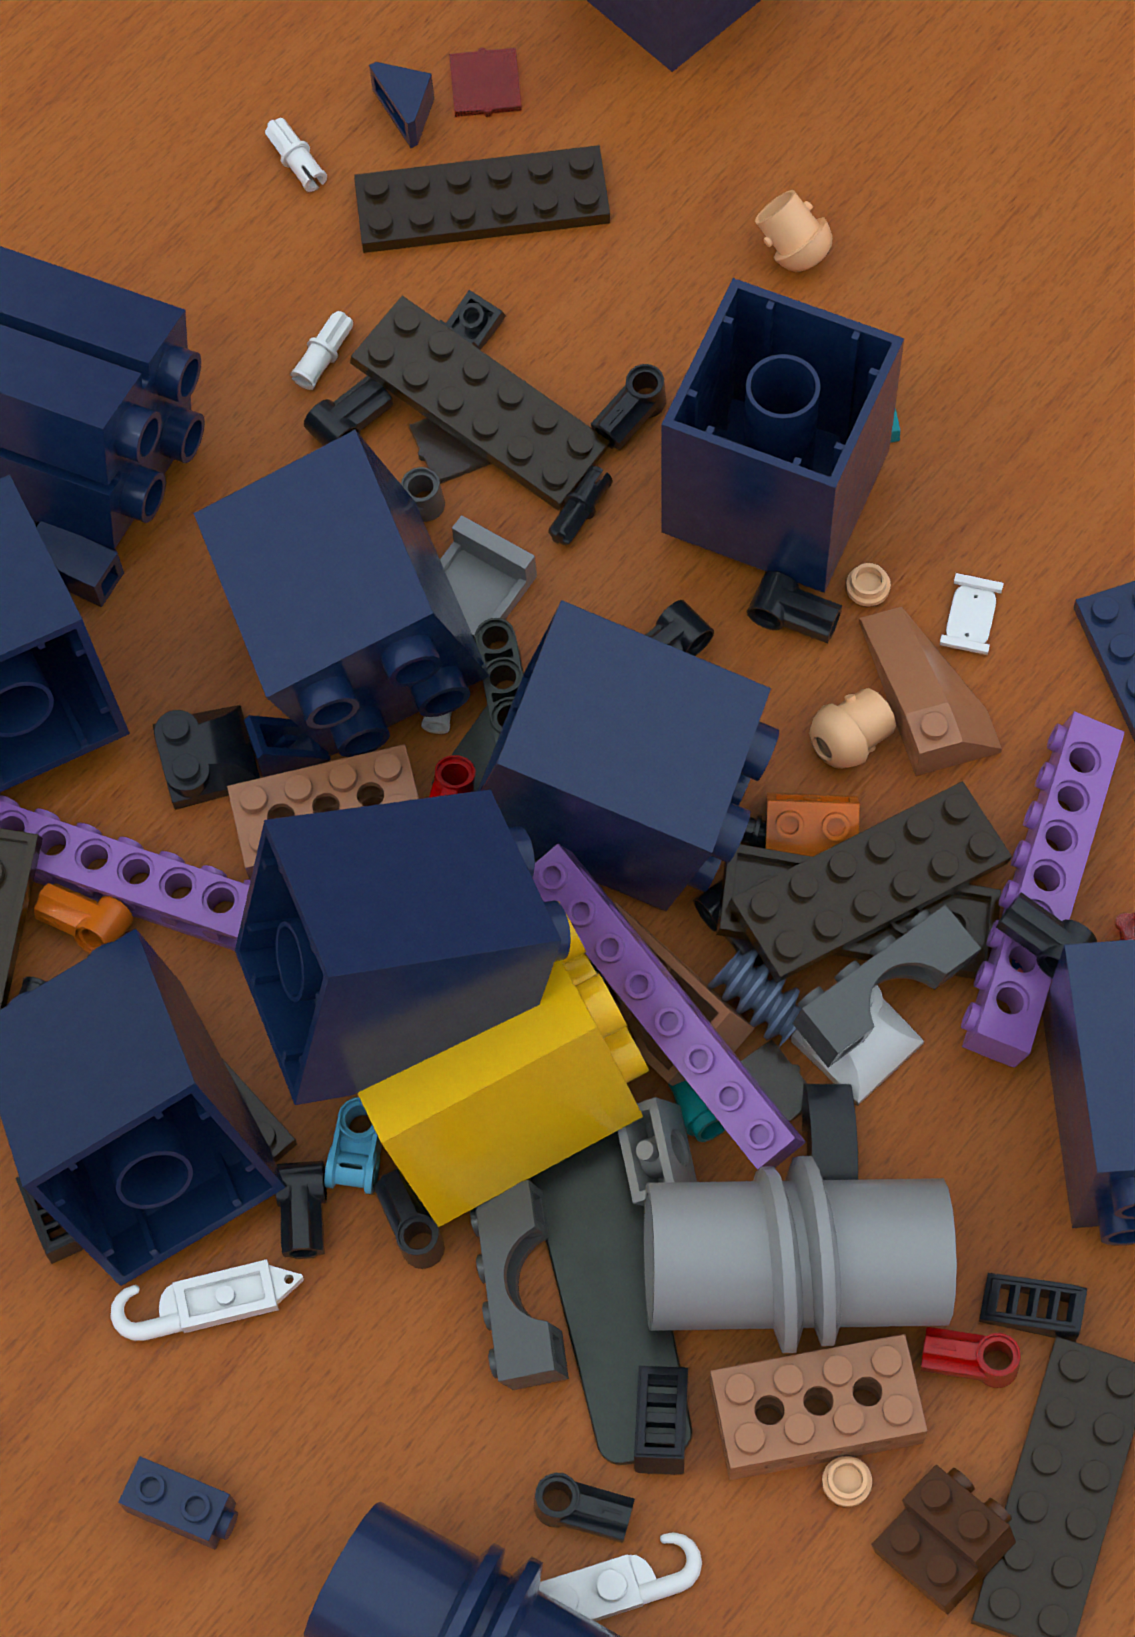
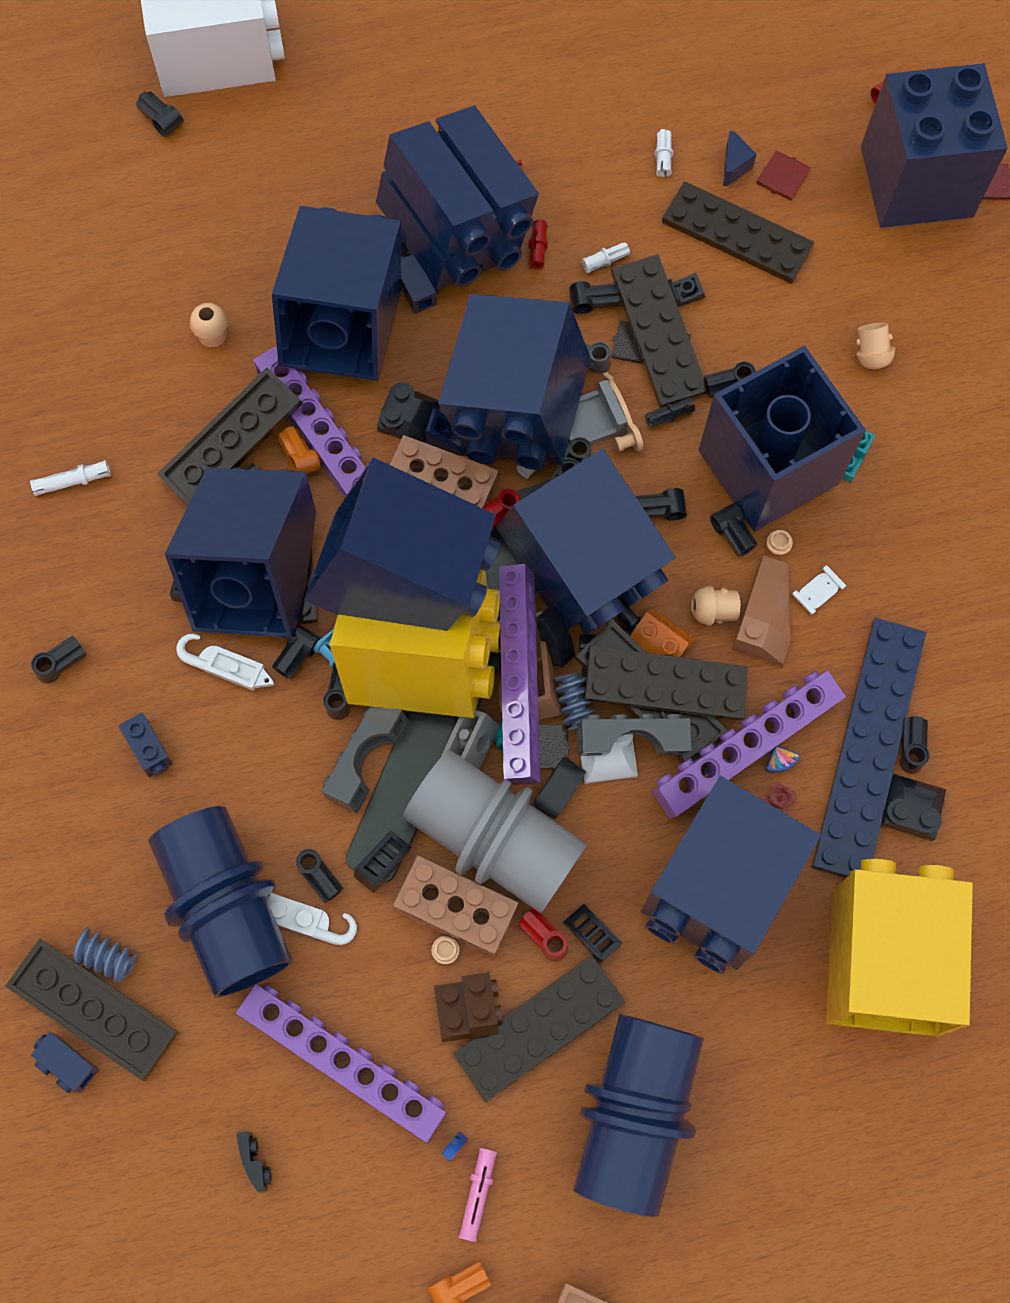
camera: 30 degrees right, 5 degrees up
(212, 395) = (538, 244): none -> red pin
(557, 571) = (633, 437): none -> light nougat brick
(661, 917) = (554, 630): none -> black slope
(1041, 931) = (726, 764): black piece -> none
(1101, 881) = (781, 760): none -> tile

